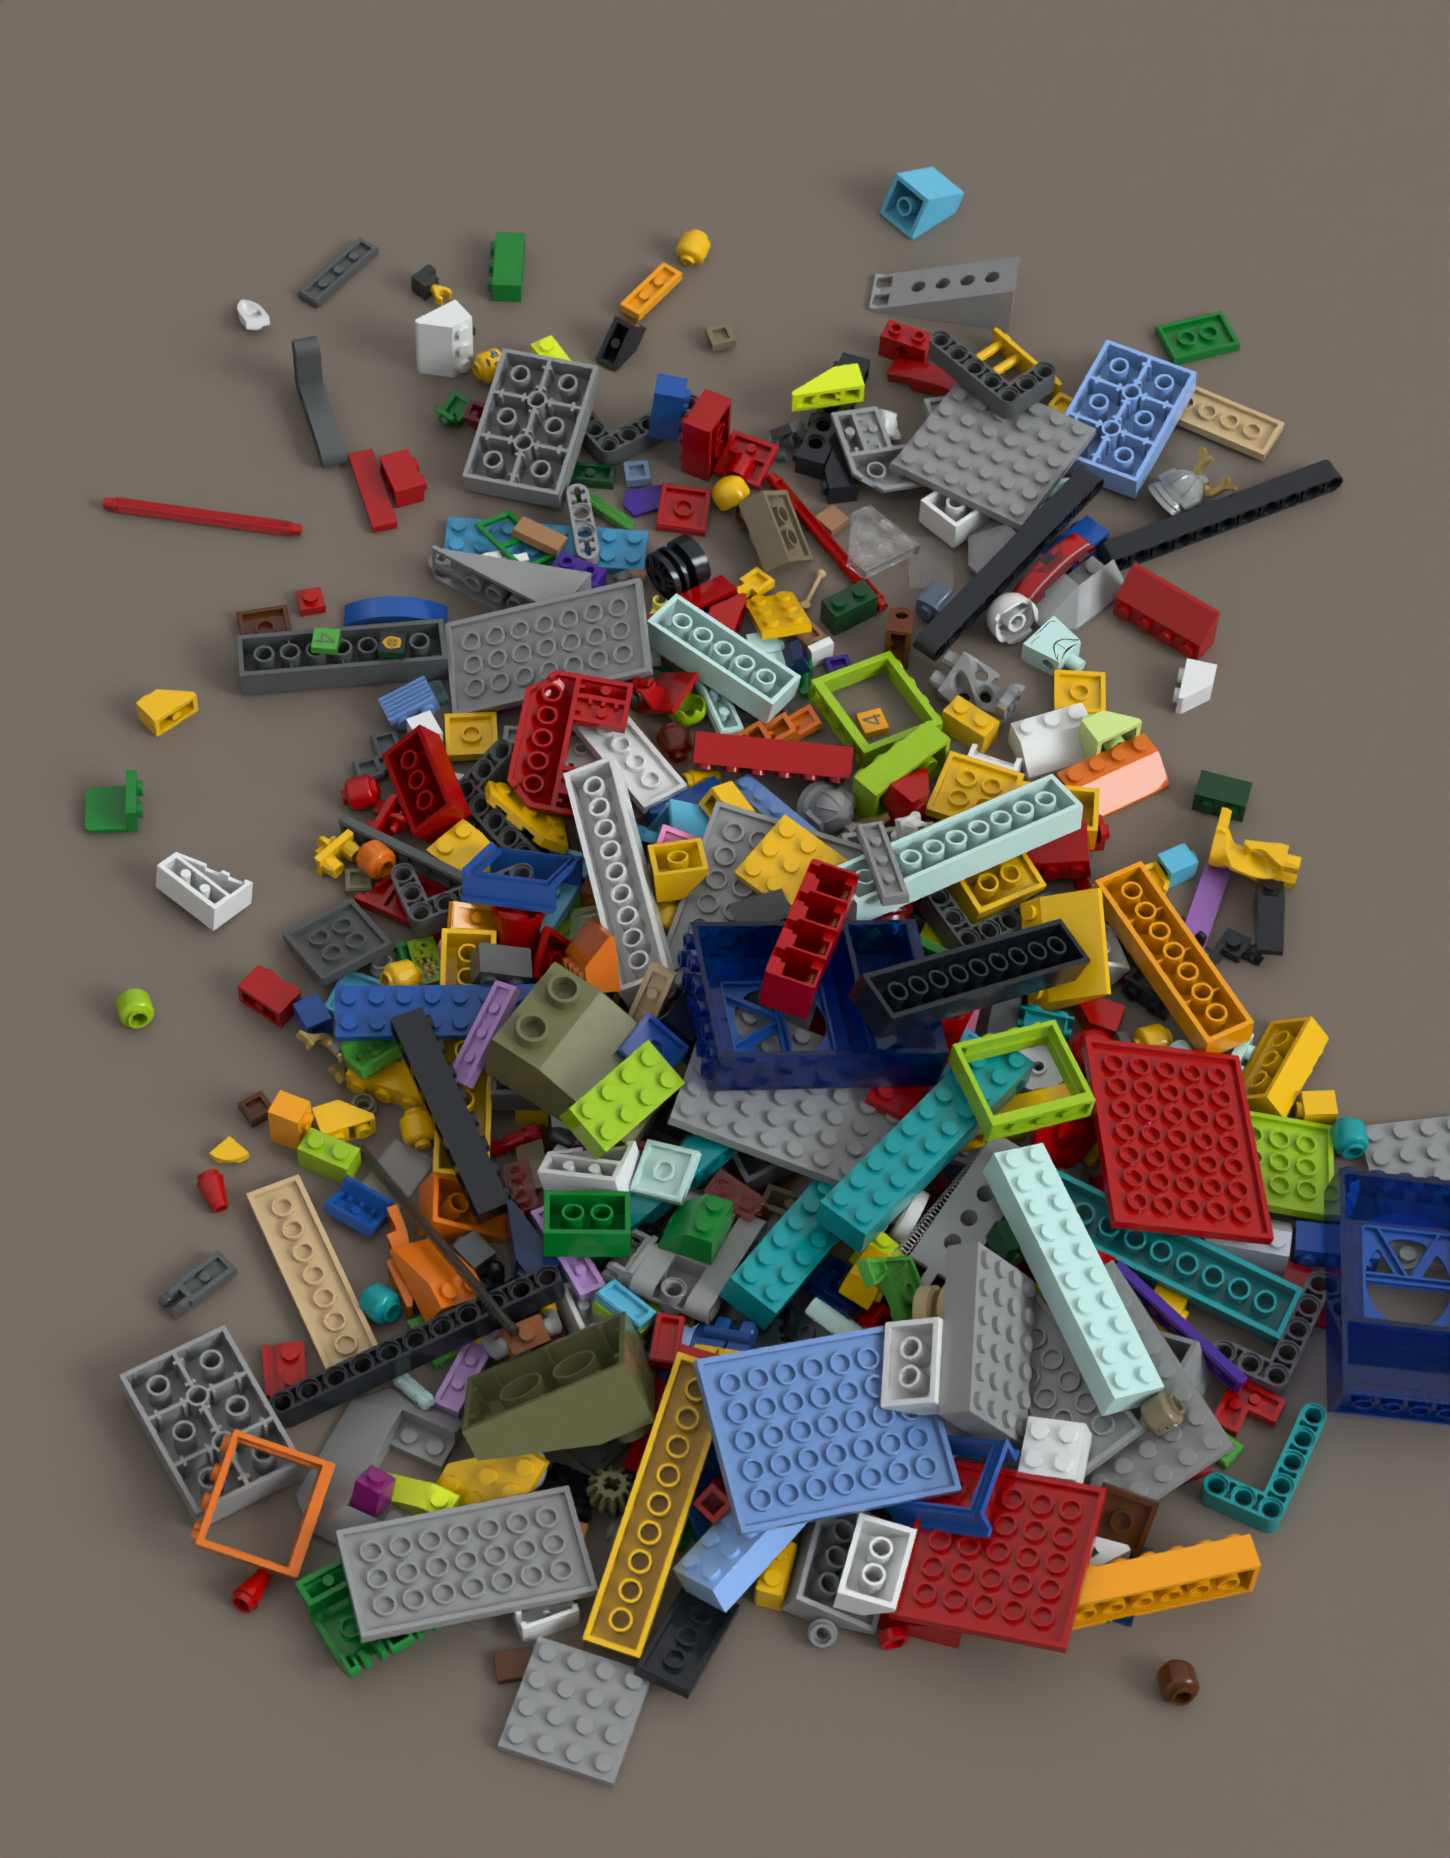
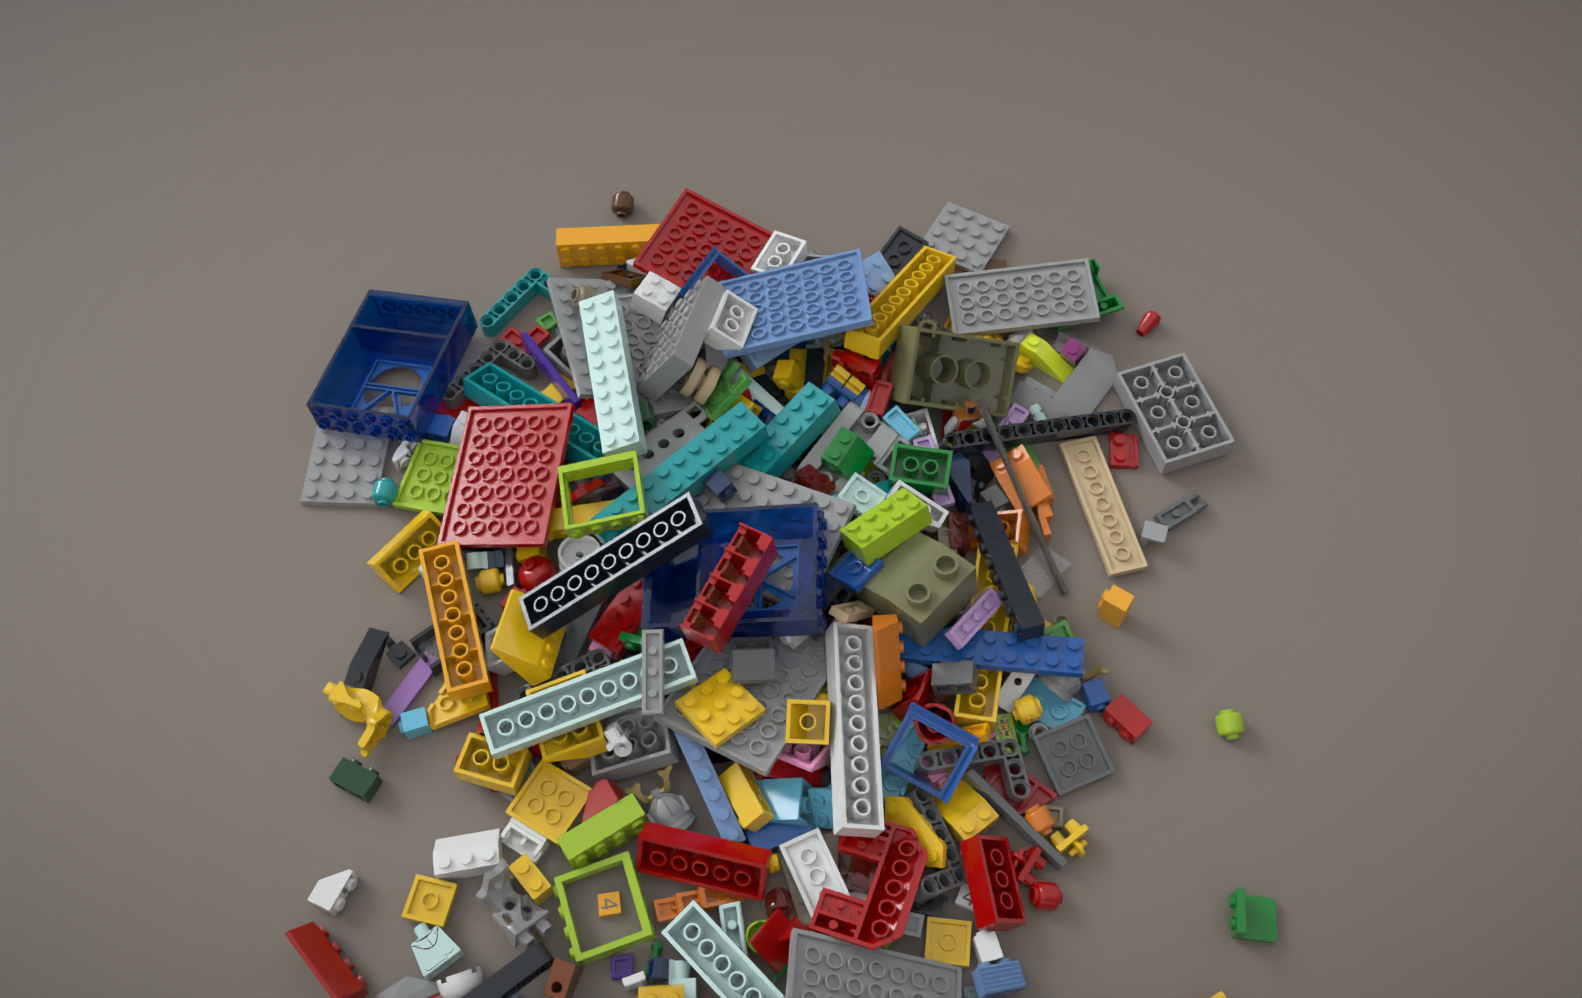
camera: 165 degrees left, 5 degrees up
(202, 891) = (1178, 816): white wedge -> none
(213, 1189) = (1170, 575): red cone -> none
(229, 1152) = (1158, 604): yellow tile -> none
(238, 1239) = (1153, 532): none -> light grey panel
(255, 1108) = (1137, 635): reddish brown tile -> none
(309, 1518) = (1143, 330): orange window -> none
(328, 1156) = (1087, 582): lime brick -> none
(343, 1121) = (1079, 609): yellow slope -> none
(358, 1207) = (1071, 544): blue bracket -> none
(375, 765) = (1019, 941): dark grey tile -> none
(380, 1304) = (1059, 478): teal head -> none
(863, 1135) = (720, 485): none -> dark blue brick
(1106, 730) = (425, 835): yellowish green slope -> none
(1122, 773) = (435, 811): slope -> none
(1317, 1107) = (396, 516): yellow brick -> none

